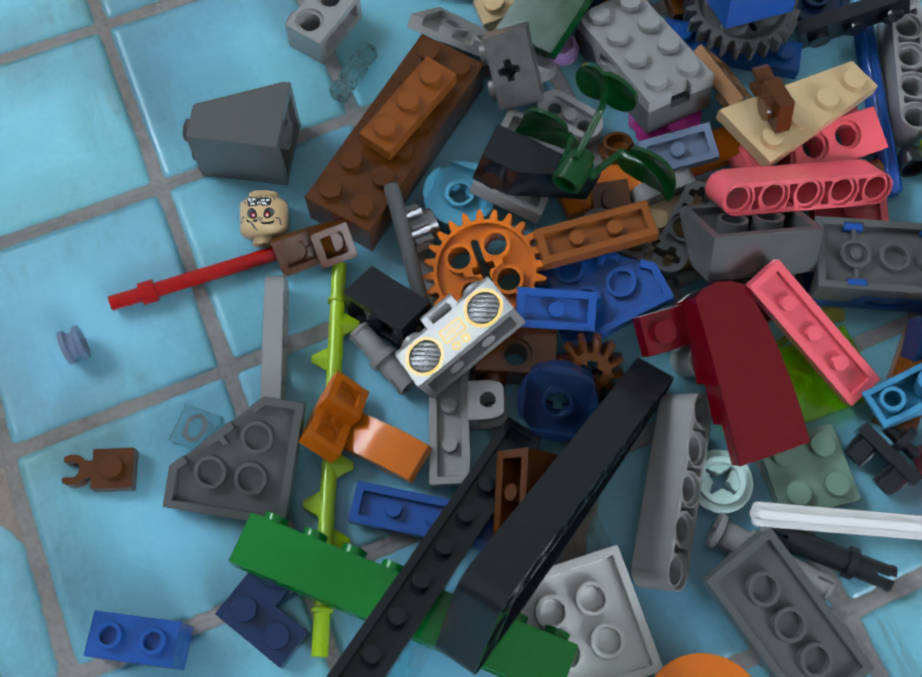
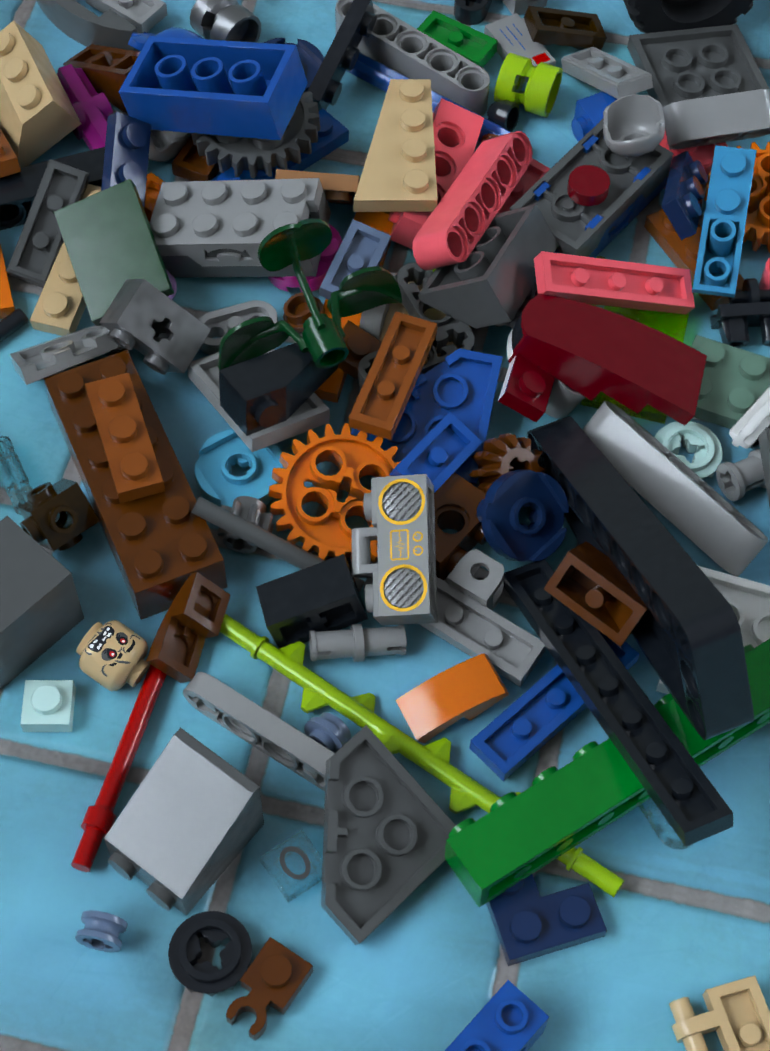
camera: 55 degrees left, 10 degrees down
(98, 402) = (217, 930): none -> black gear
(170, 342) = (184, 823): none -> slope
(208, 208) = (48, 706): none -> light aqua plate
(298, 385) = (328, 731): none -> sand blue plate
(333, 417) = (387, 716): orange slope -> none
(334, 114) = (57, 514): none -> dark brown brick
(774, 100) = (390, 151): reddish brown plate -> none
(883, 255) = (588, 185): none -> dark red tile

